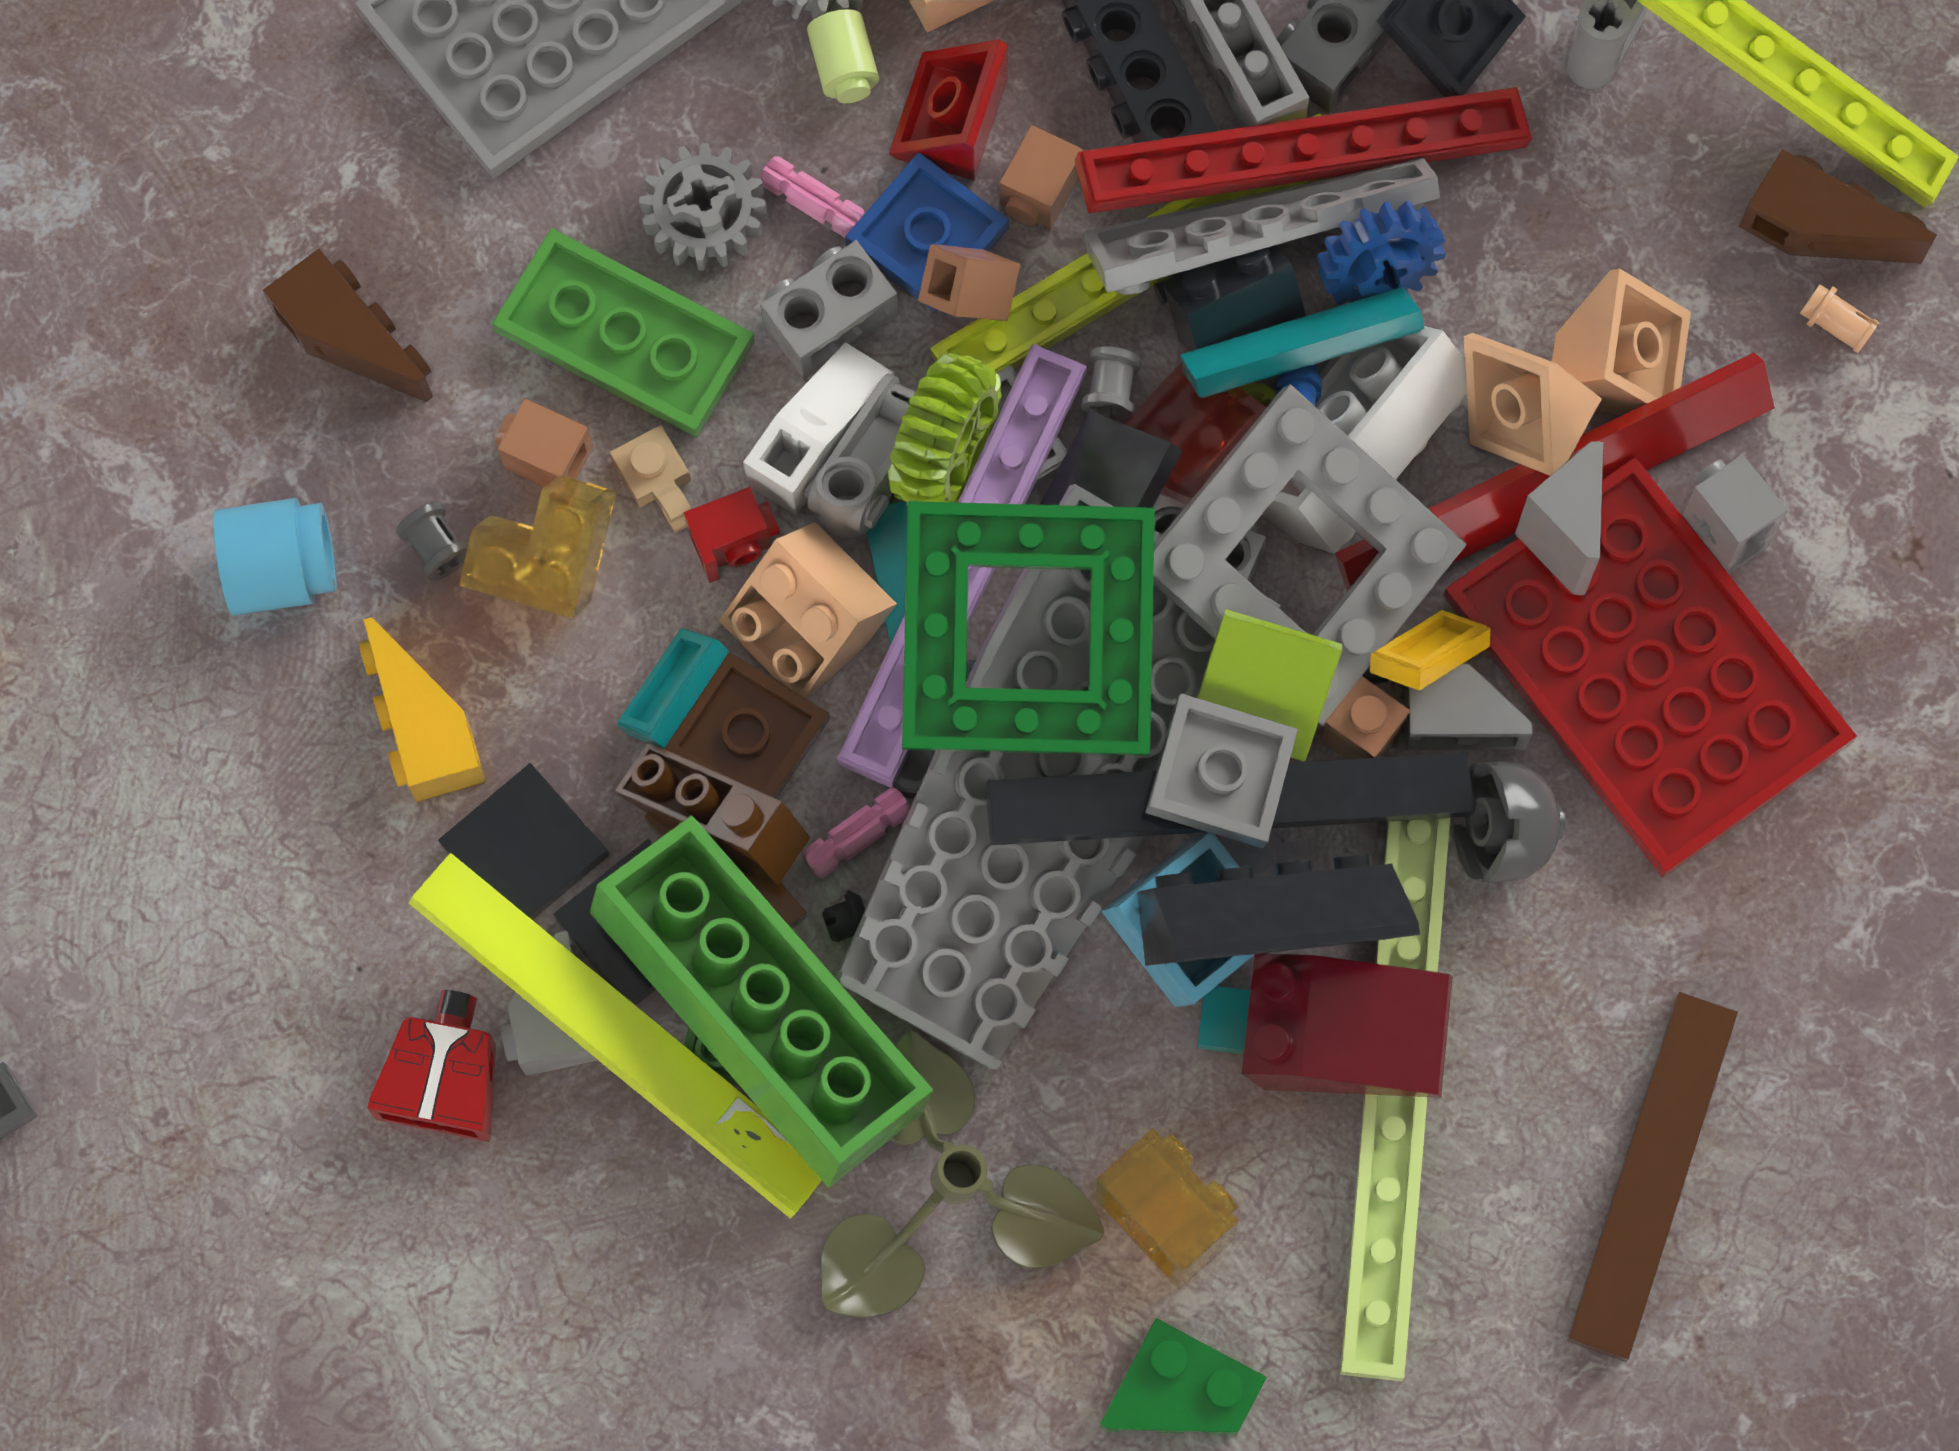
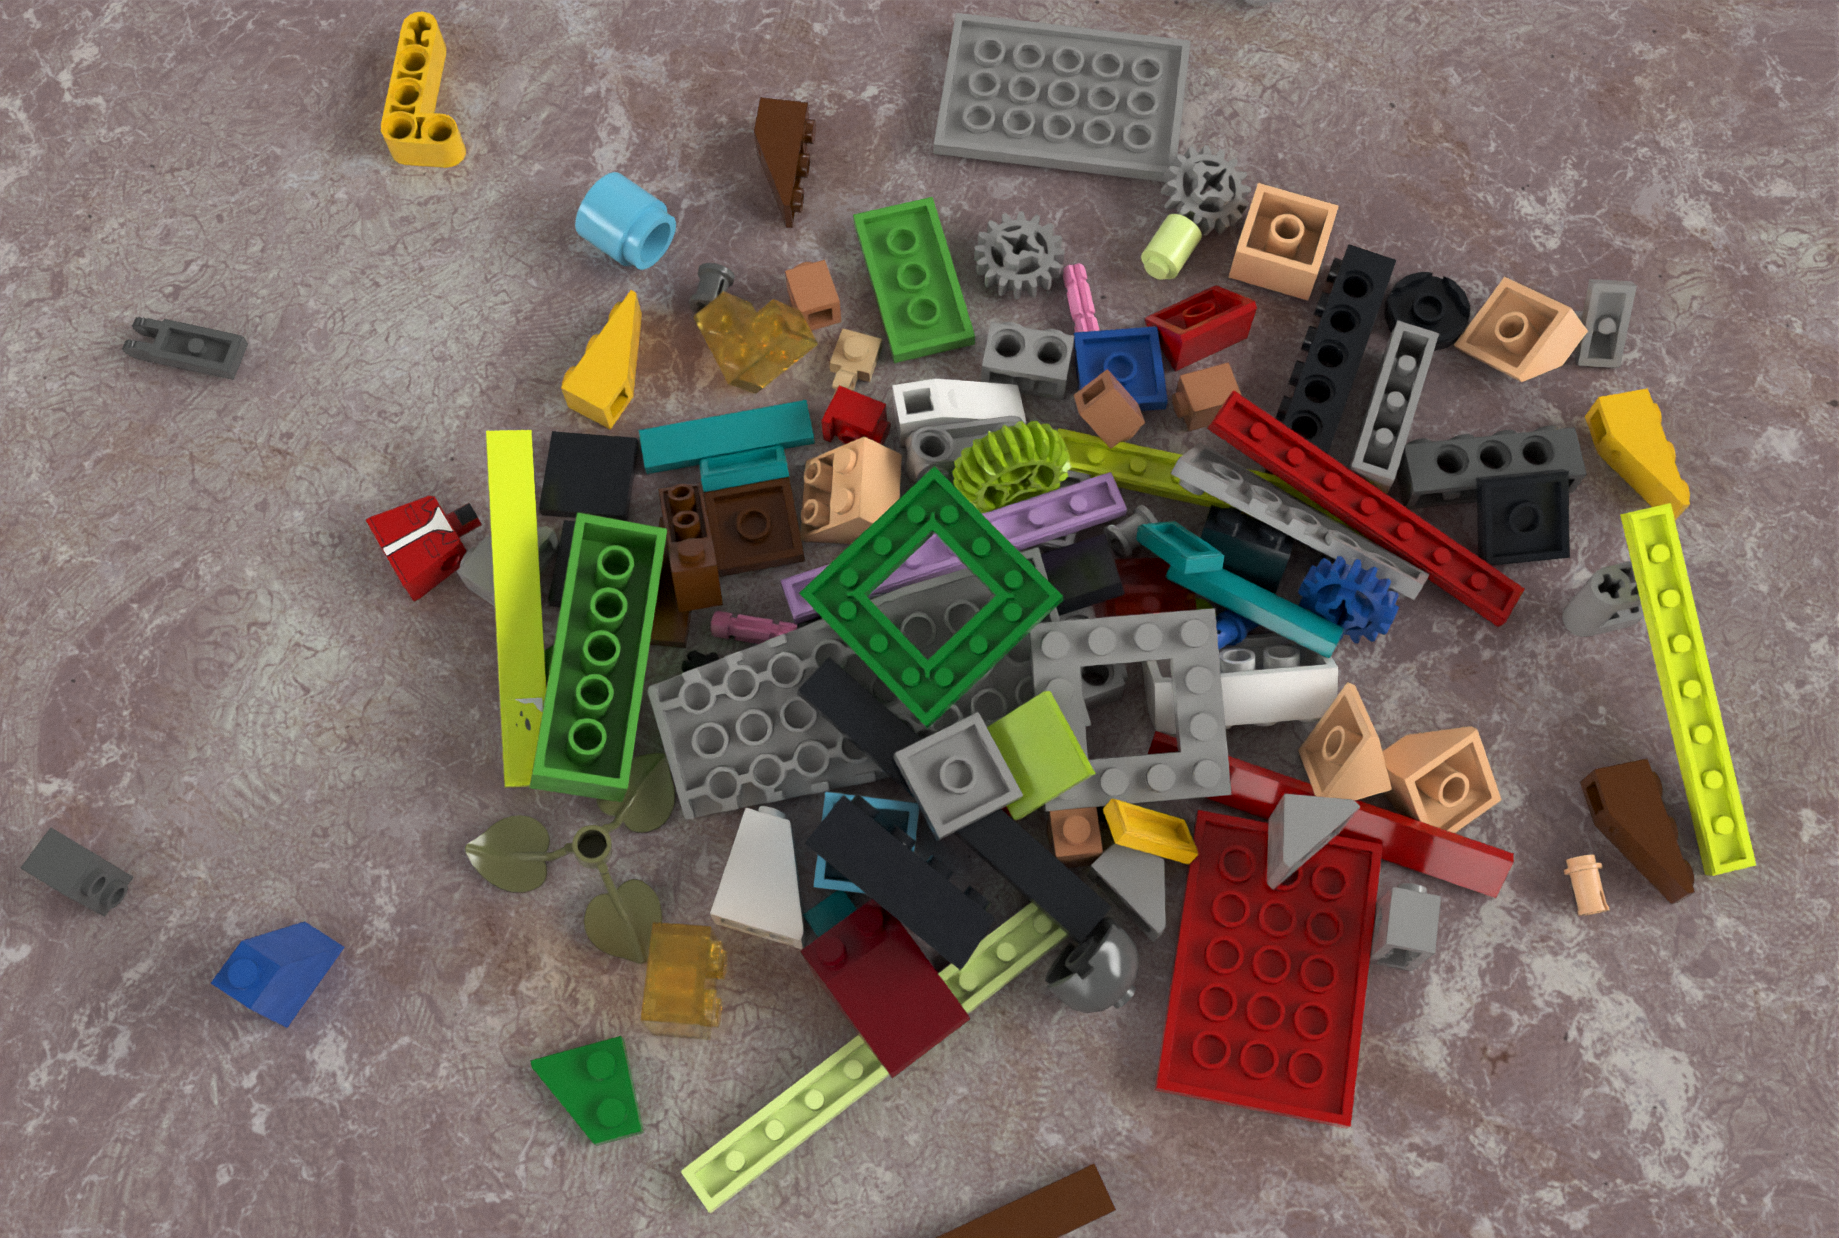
camera: 45 degrees right, 5 degrees down
(613, 674) = (690, 441): none -> teal tile
(1131, 1049) = (762, 881): none -> white slope
(1182, 356) = (1180, 547): none -> teal tile

